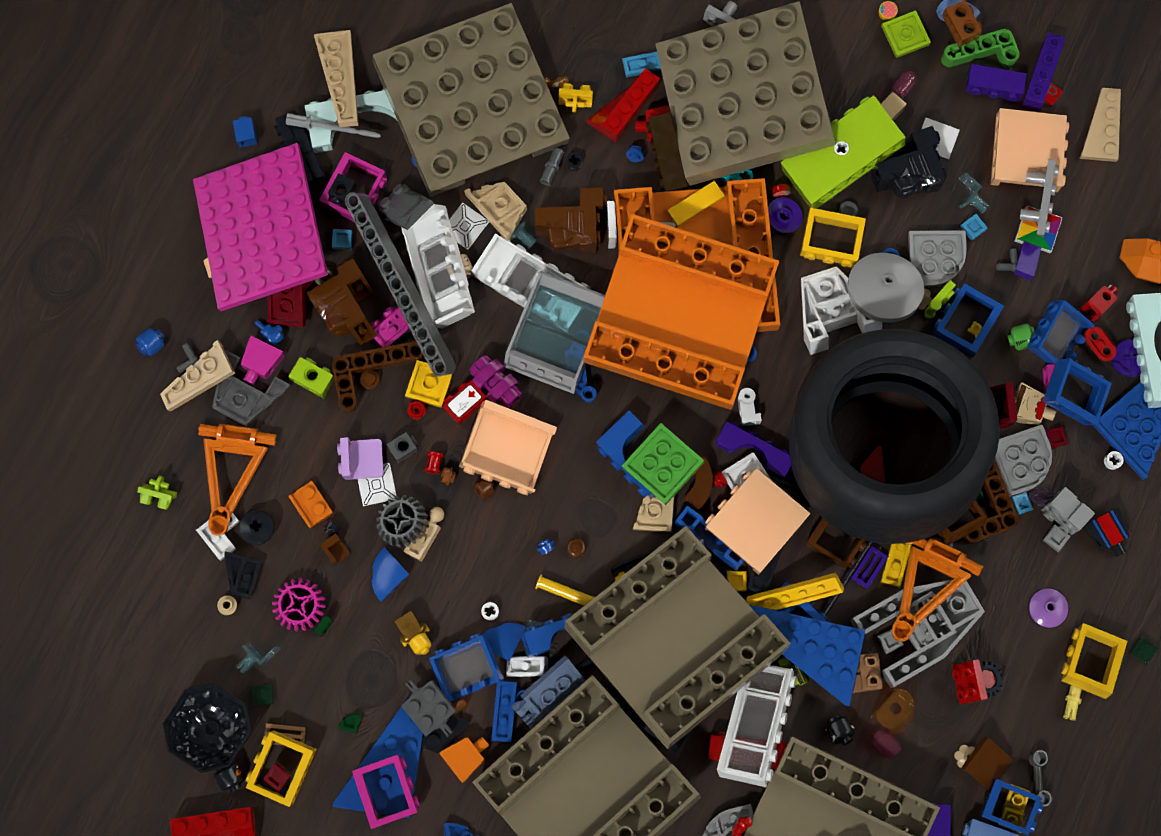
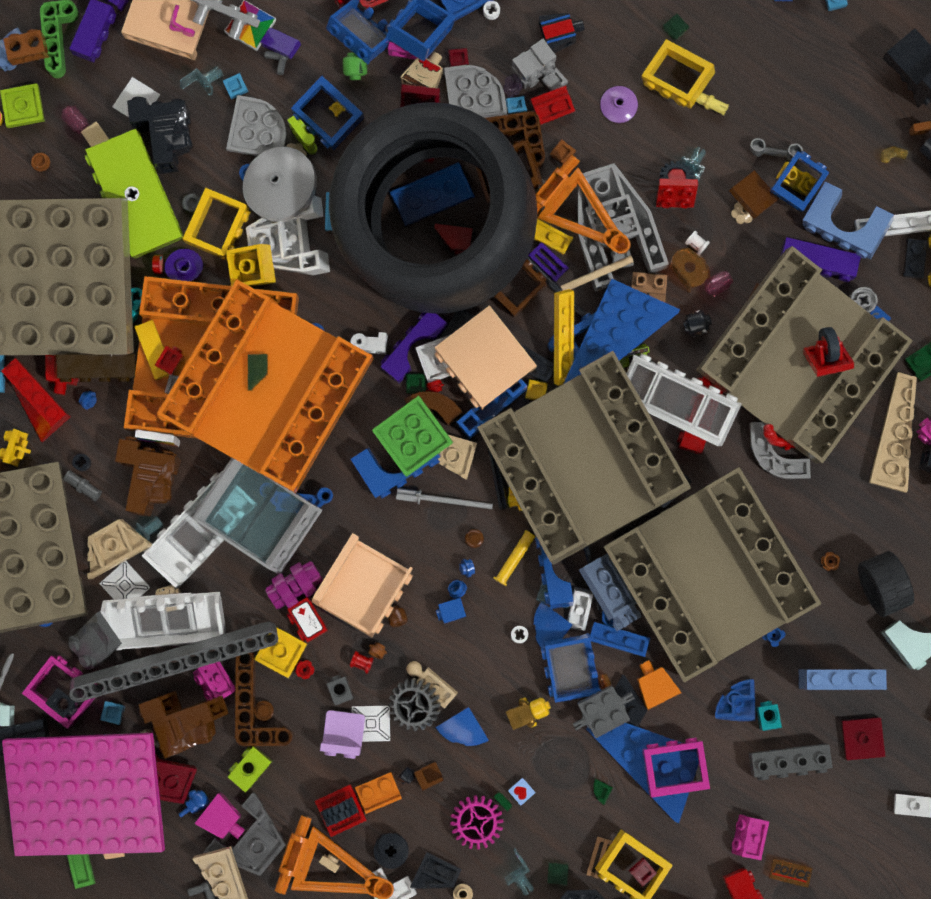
camera: 75 degrees left, 5 degrees up
(189, 242) = (81, 870): none -> bright green tile
(235, 471) = (330, 862): none -> tan plate
(287, 471) = (340, 810): none -> red plate
(336, 643) = (521, 791): none -> light blue tile
(500, 539) = (451, 611): none -> blue brick
(522, 541) = (457, 589): none -> blue plate
(606, 483) = (416, 496): none -> light grey piece
(689, 219) = (170, 359): none -> red bracket
(695, 300) = (256, 369): none -> clear green tile
(718, 460) = (415, 383): none -> dark green tile
(798, 277) = (251, 265): none -> yellow brick
(855, 62) = (40, 162): none -> dark orange plate
(867, 616) = (598, 273): none -> tan bar
(911, 439) = (432, 194): none -> blue tile
(923, 714) = (697, 242): none -> white bush
(986, 559) = (562, 152): none -> dark orange tile
(1005, 695) = (694, 162): none -> clear light blue bracket
(1017, 155) = (186, 31): none -> dark pink piece
(1030, 540) = (553, 105): none -> red plate

